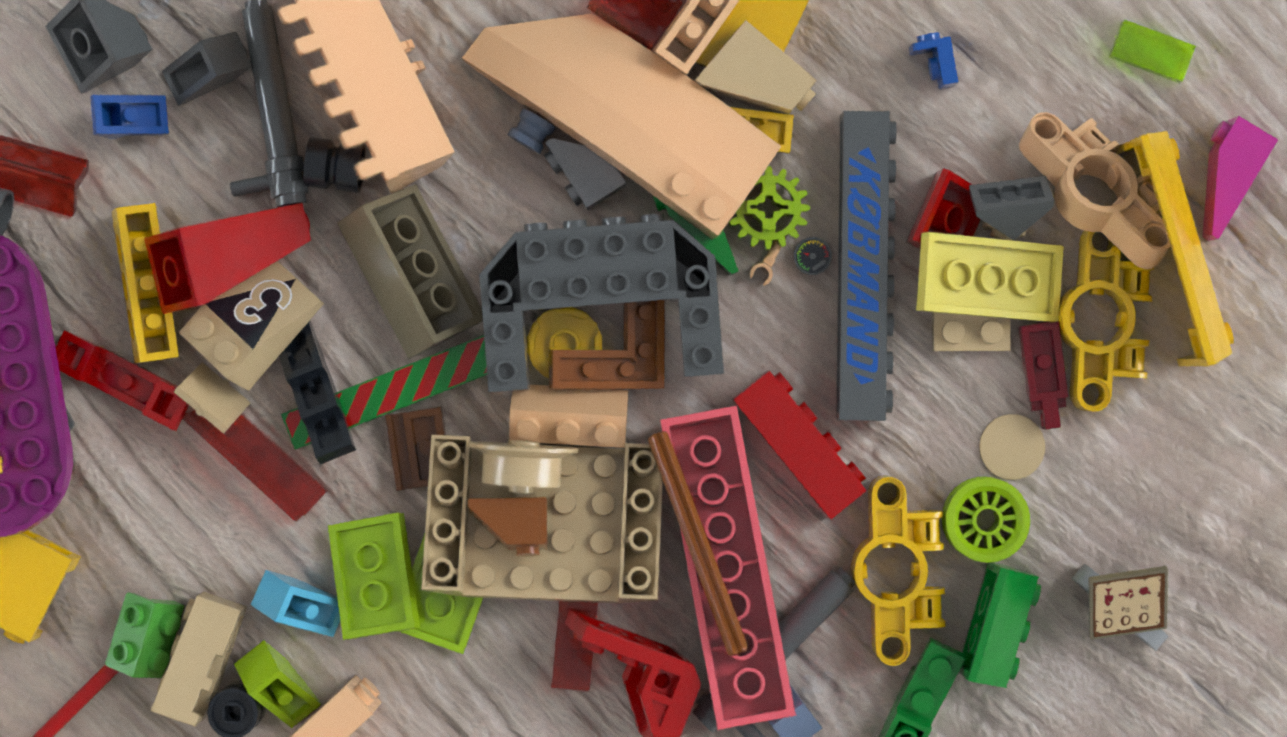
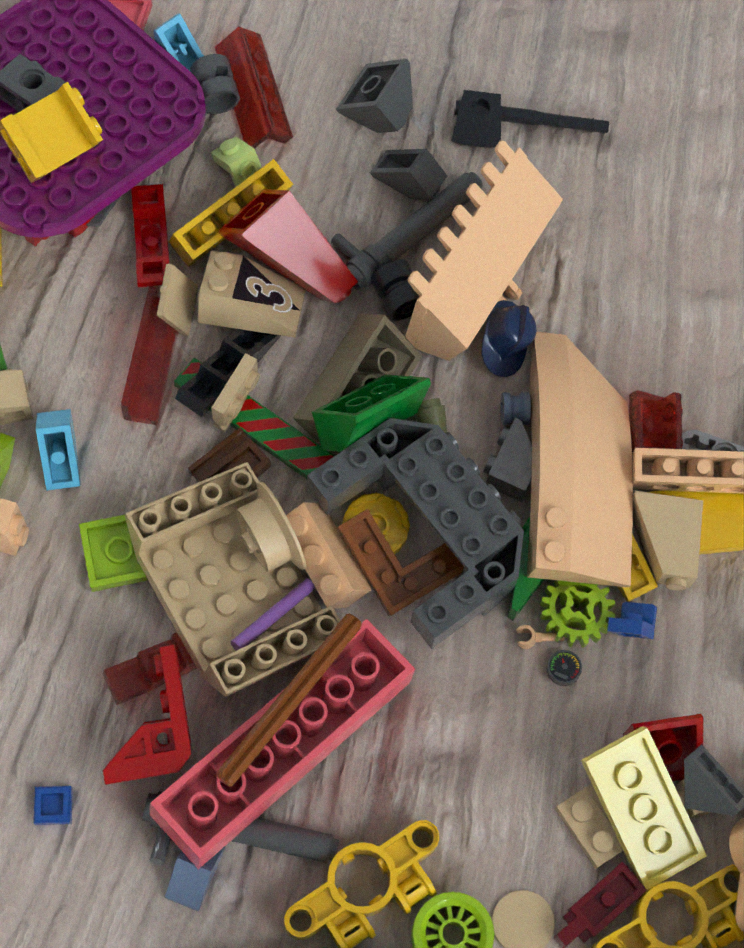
camera: 55 degrees right, 20 degrees down
(84, 236) = (237, 159): none -> yellowish green bracket
(129, 115) = (341, 138): blue slope -> none
(345, 388) = (235, 392): none -> tan plate
(373, 576) = (111, 487): lime plate -> none
(451, 285) = (366, 408): none -> green slope
(453, 89) = (506, 338): none -> dark blue piece
(493, 221) = (432, 413): none -> olive cone
(514, 522) = (220, 557): dark orange slope -> none
(600, 503) = (273, 614): none -> medium lavender bar
(799, 444) = (415, 744): red brick -> none
(815, 161) = (636, 621): none -> blue bracket
(864, 265) = (581, 709): dark grey brick -> none

